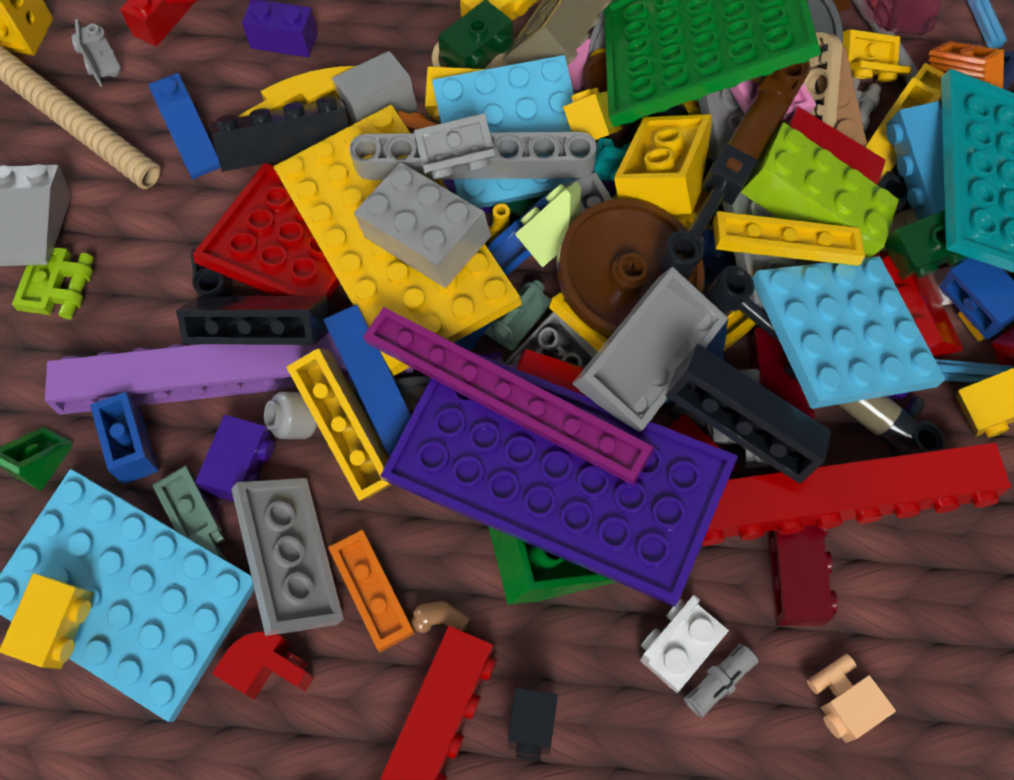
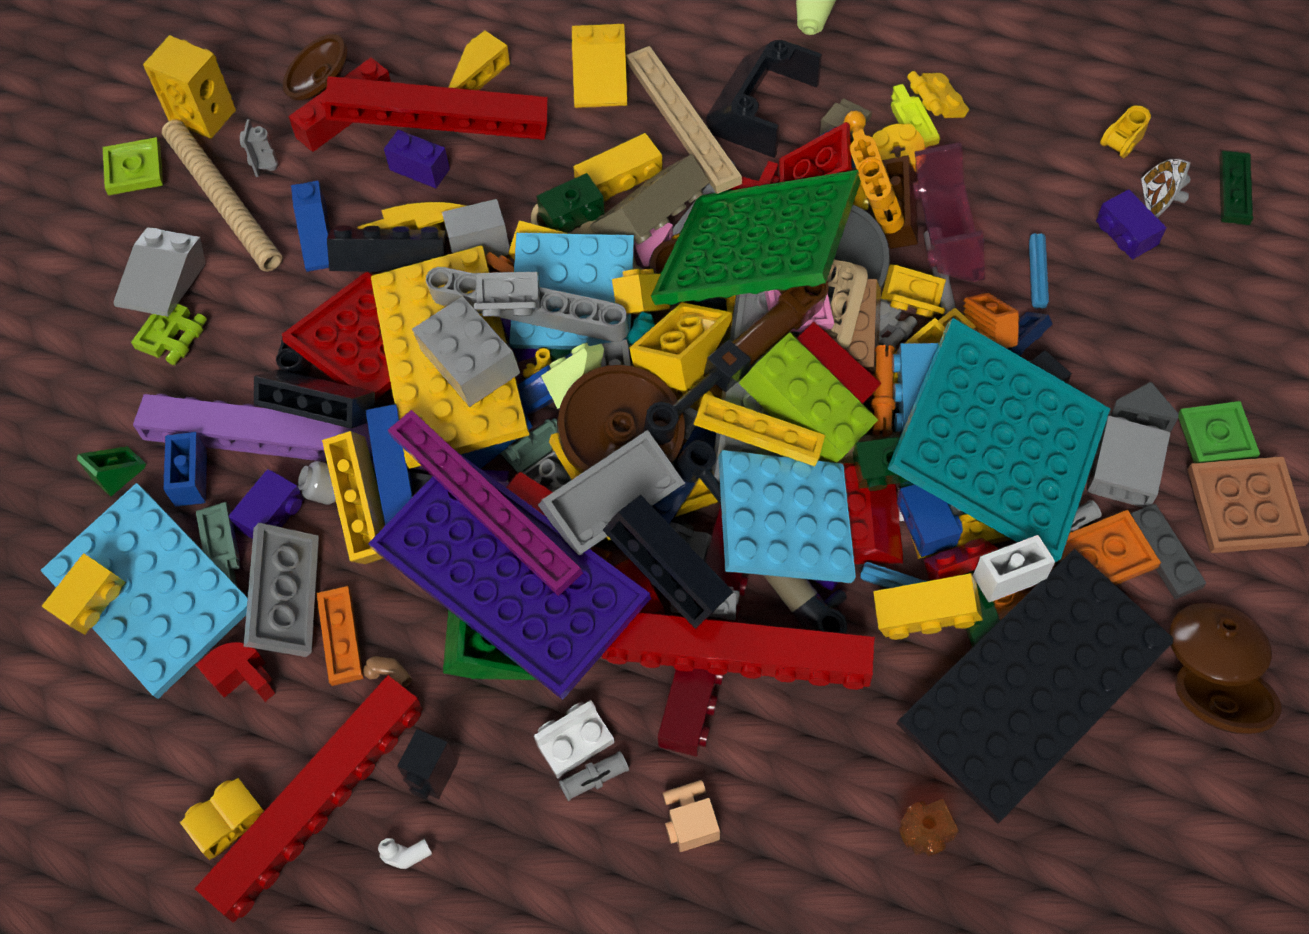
camera: 15 degrees right, 5 degrees down
(890, 178) = (883, 401): none -> orange pin

